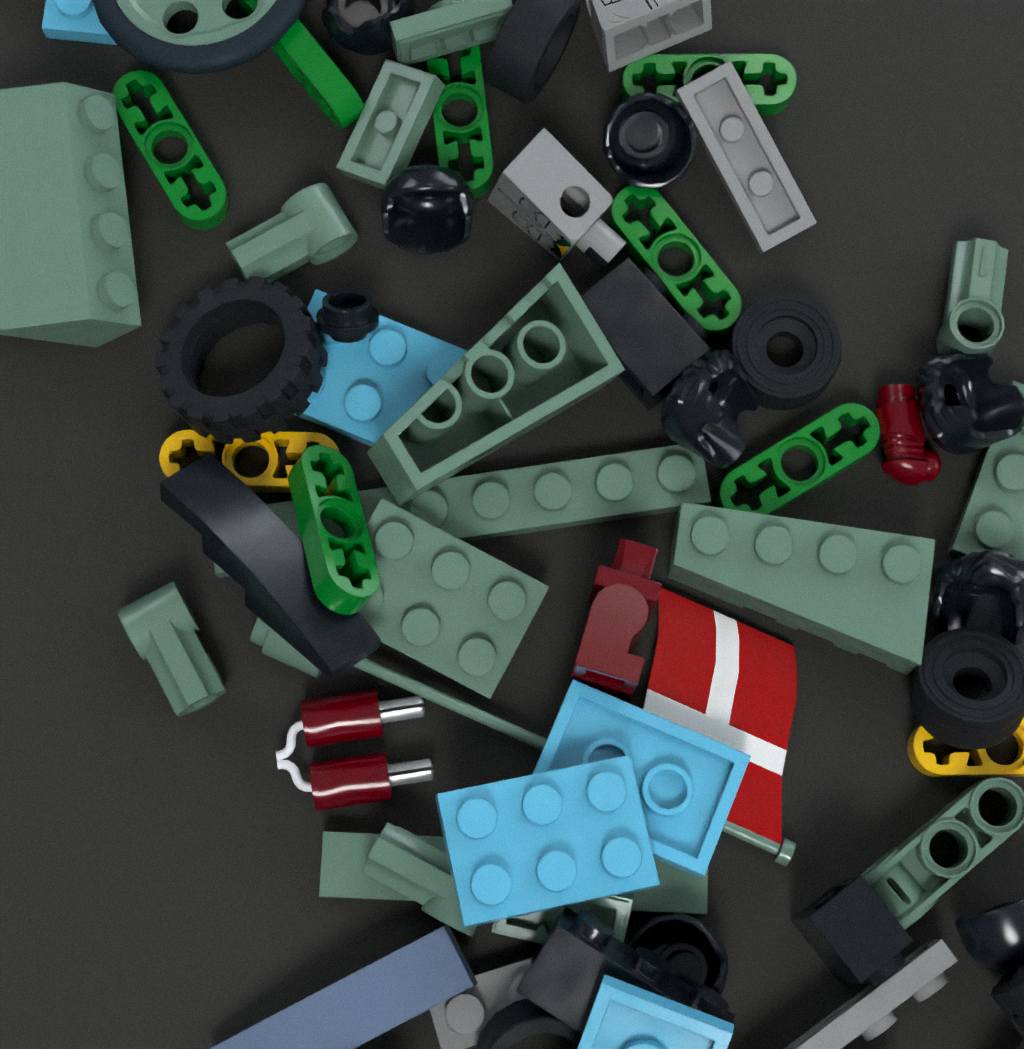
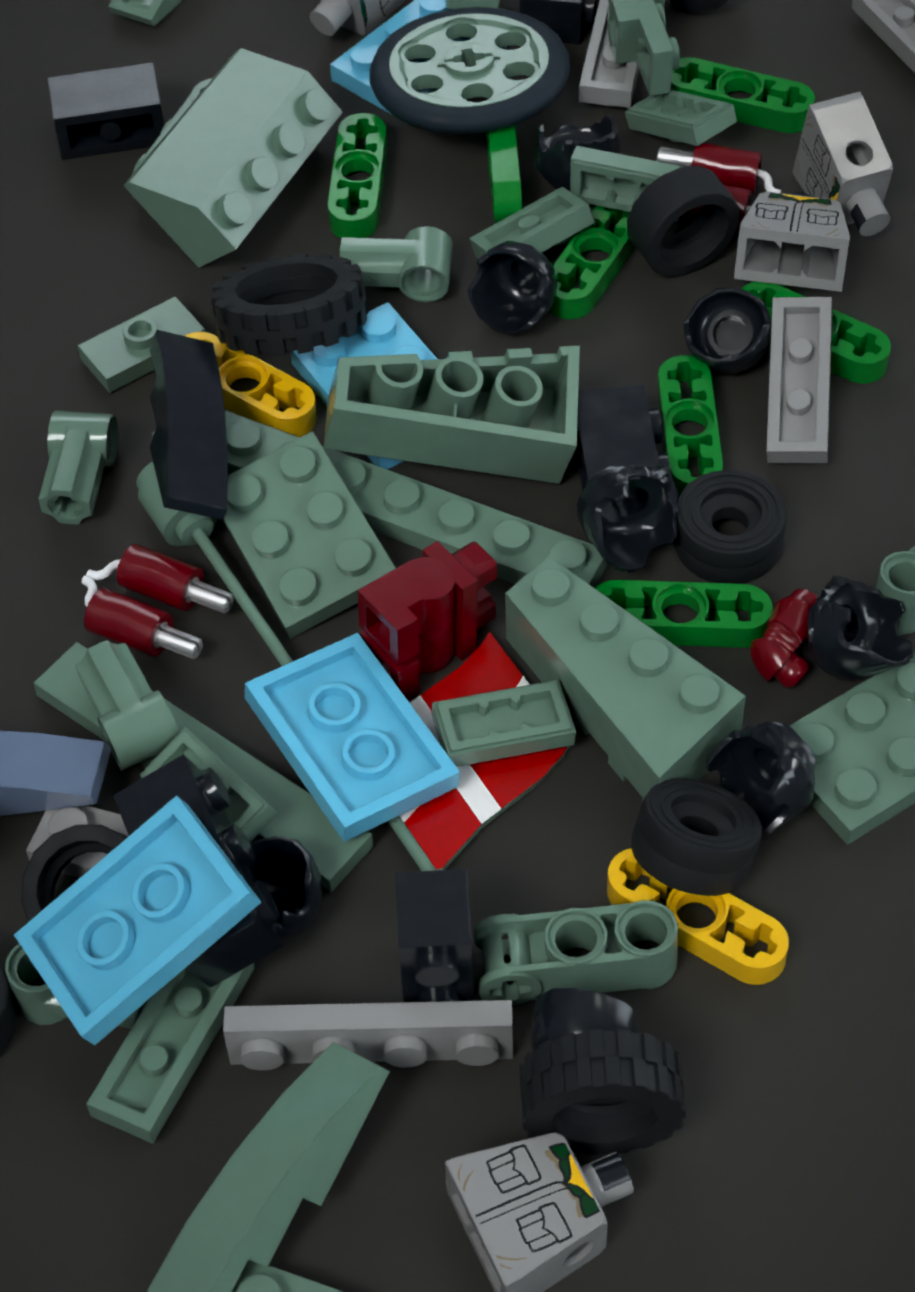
camera: 40 degrees right, 25 degrees down
(119, 475) = (124, 350): none -> sand green plate
(323, 551) = (239, 427): green beam -> none
(347, 315) = (390, 312): black plate -> none
(544, 183) = (620, 342): light grey torso -> none
(546, 841) = (233, 714): medium azure plate -> none
(743, 678) = (504, 723): none -> sand green plate

